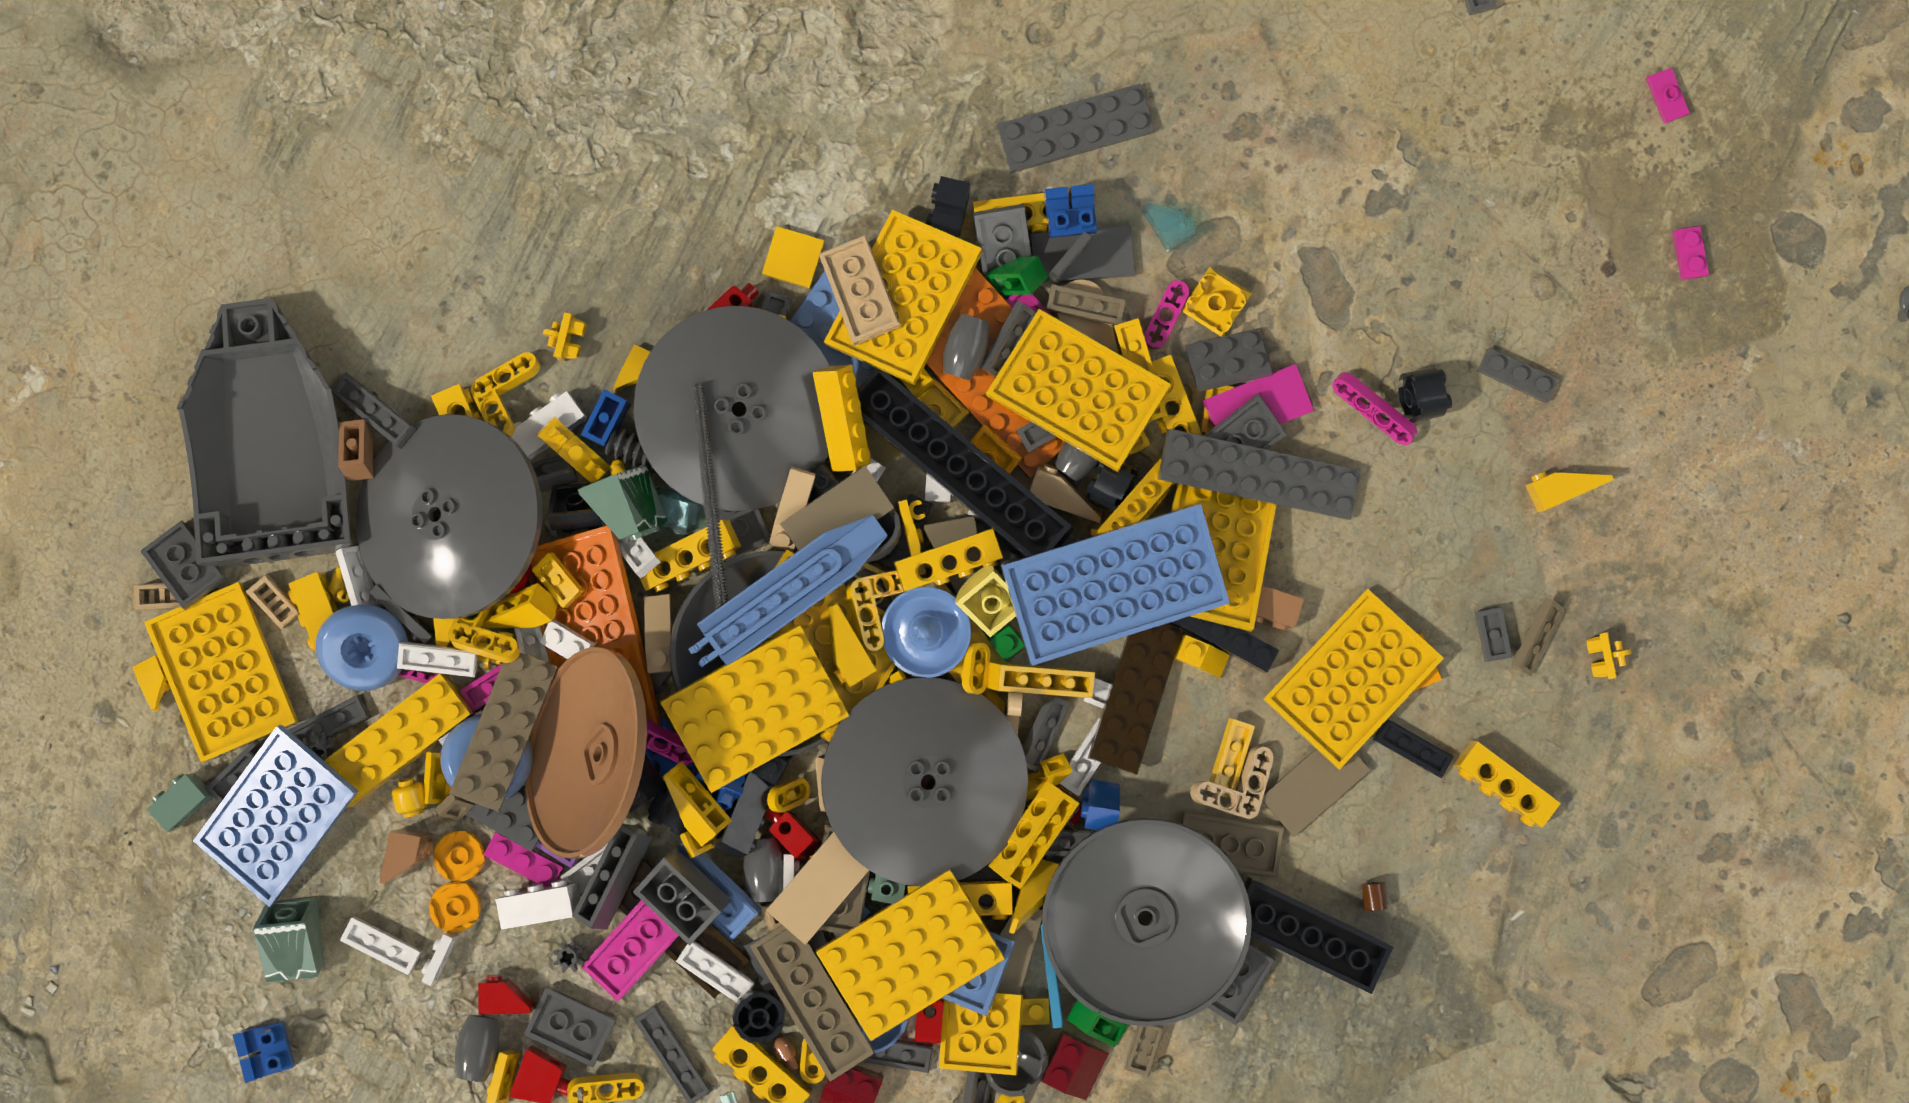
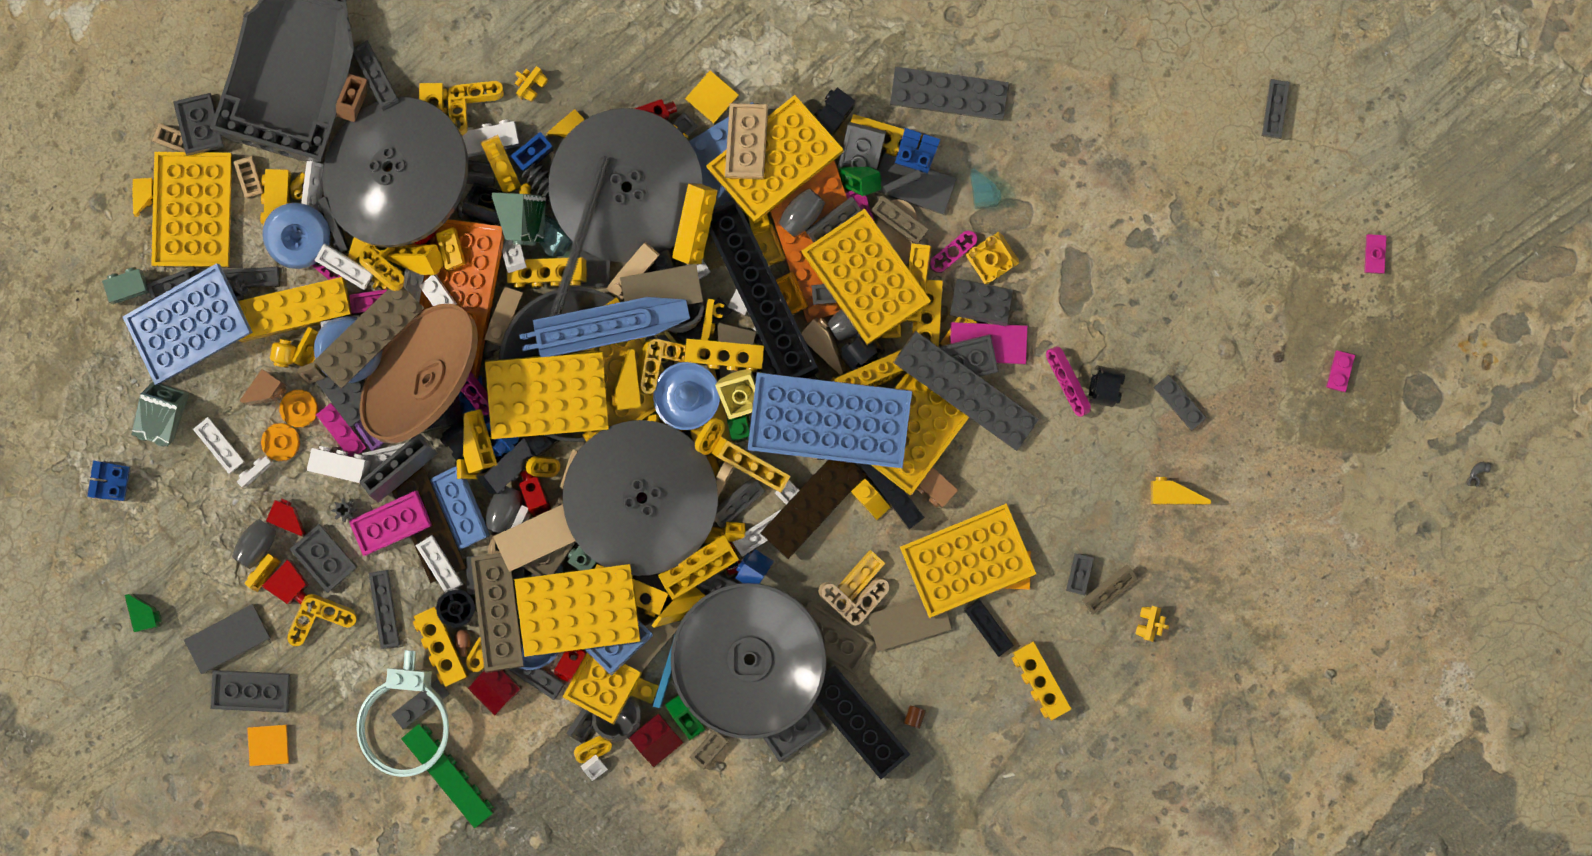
camera: 25 degrees right, 0 degrees up
(682, 896) = (440, 502): dark grey brick -> none

